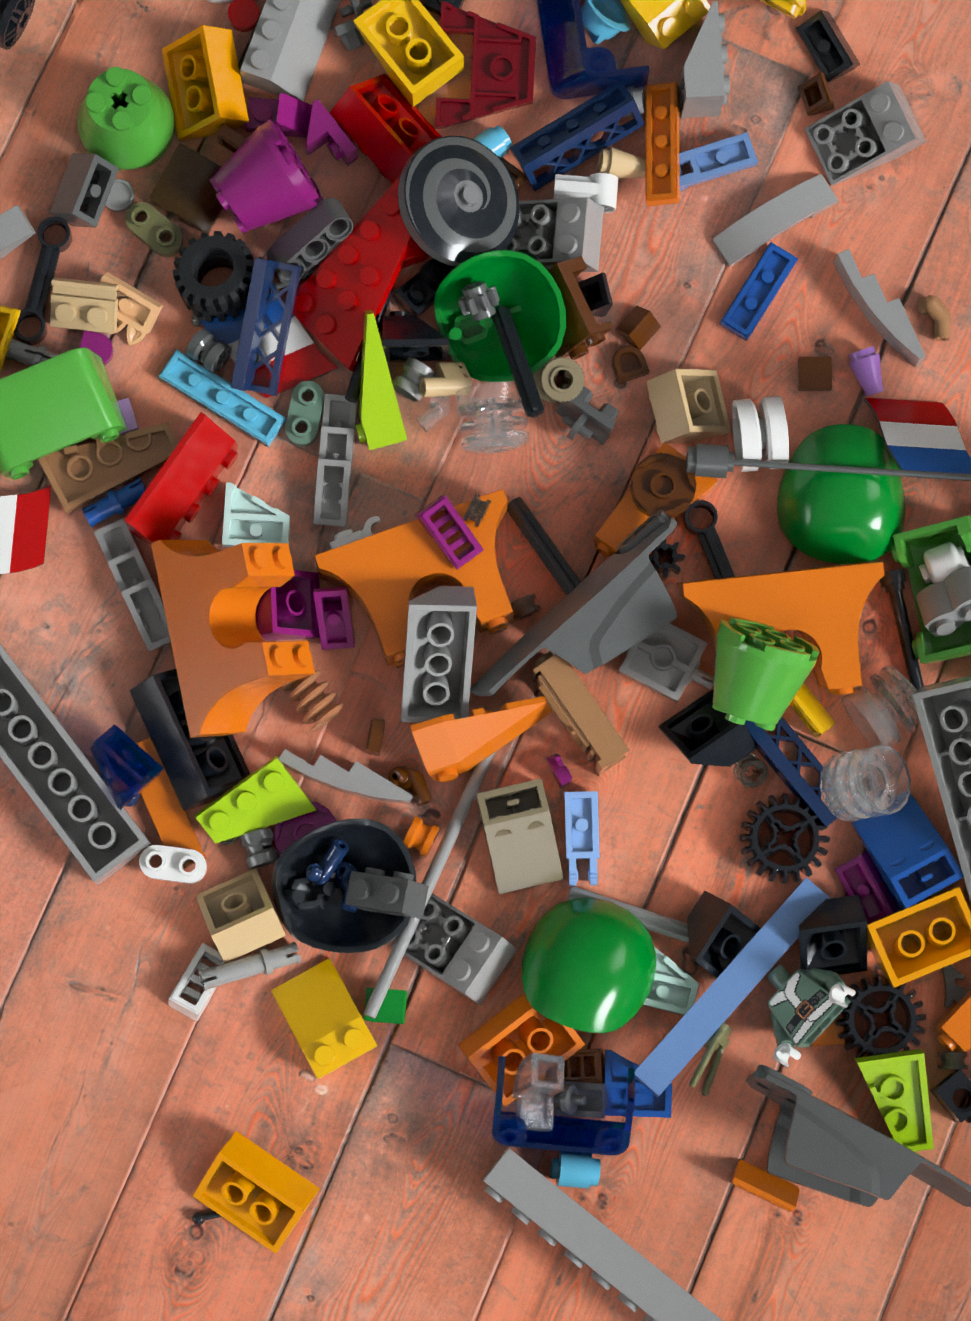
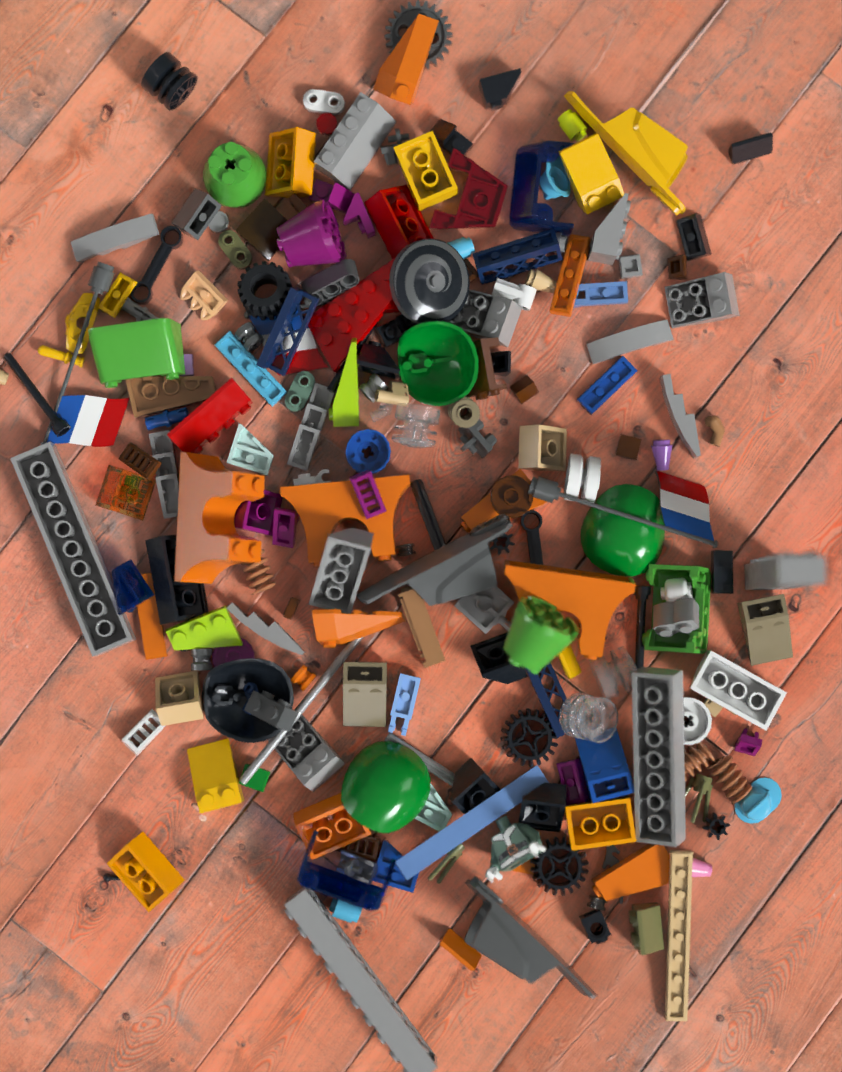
camera: 20 degrees right, 5 degrees up
(80, 627) = (125, 492): none -> clear orange slope
(84, 305) = (178, 288): tan plate -> none
(88, 574) = (139, 460): none -> reddish brown slope
(98, 344) = (180, 315): magenta tile -> none
(172, 864) = (144, 656): white plate -> none
(249, 966) = (177, 731): light grey pin -> none
(321, 873) = (235, 686): dark blue arm -> none
(412, 781) = (307, 641): reddish brown arm -> none
(434, 455) = (362, 440): none -> blue wheel
(477, 510) = (388, 485): clear smoke bush -> none
(478, 300) = (426, 349): dark grey gear -> none
(517, 362) = (440, 395): black axle -> none
(535, 1085) = (332, 854): clear brick -> none
(558, 769) = (400, 656): magenta tile -> none
(629, 364) = (512, 411): reddish brown tile -> none
(746, 111) = (630, 266): none -> light grey tile
(757, 777) = (522, 694): clear smoke bush -> none
(901, 1095) = (559, 917): lime wing -> none

